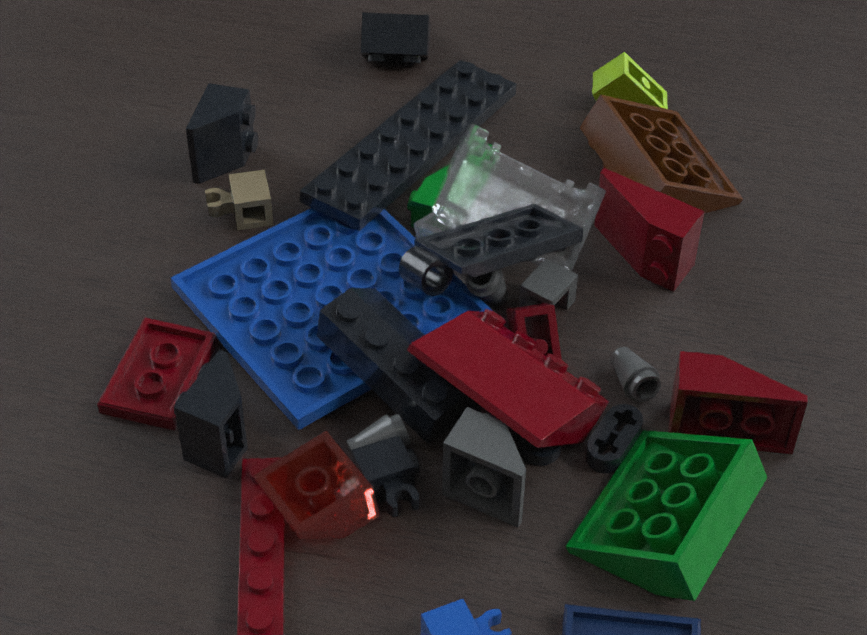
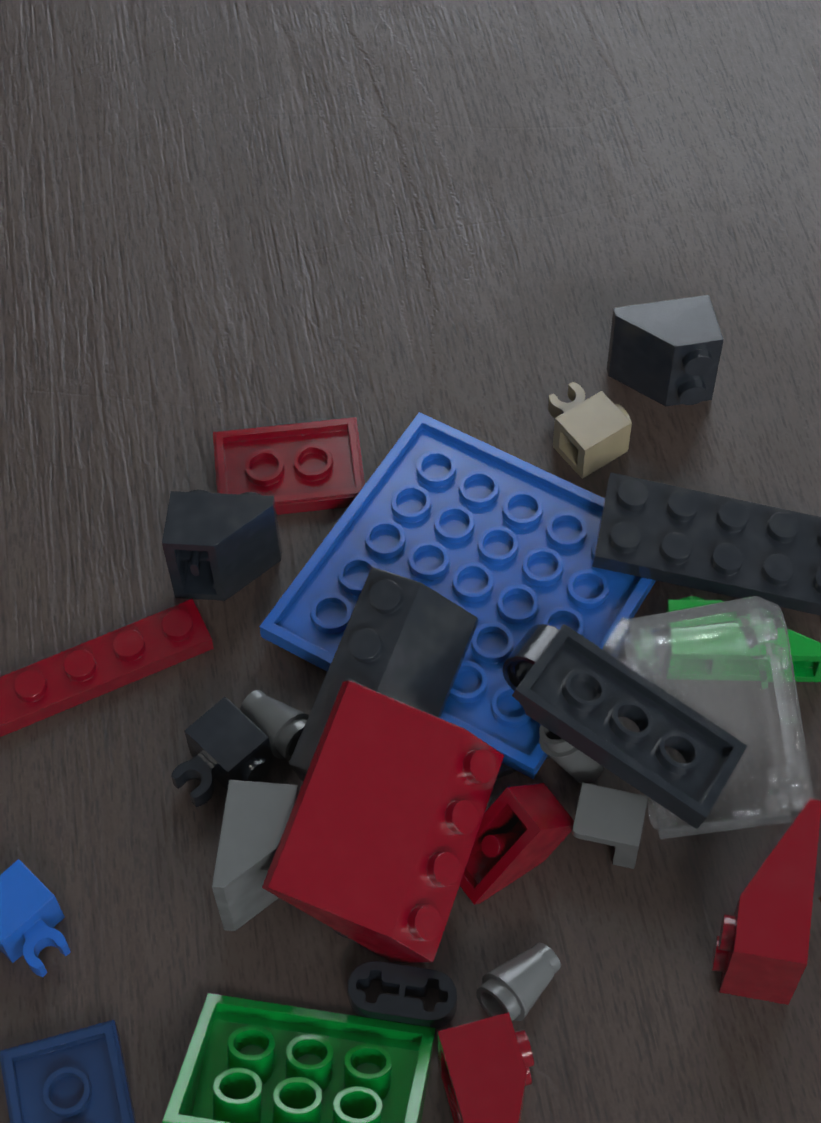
camera: 70 degrees right, 10 degrees up
(319, 490) = (155, 687): clear red slope -> none

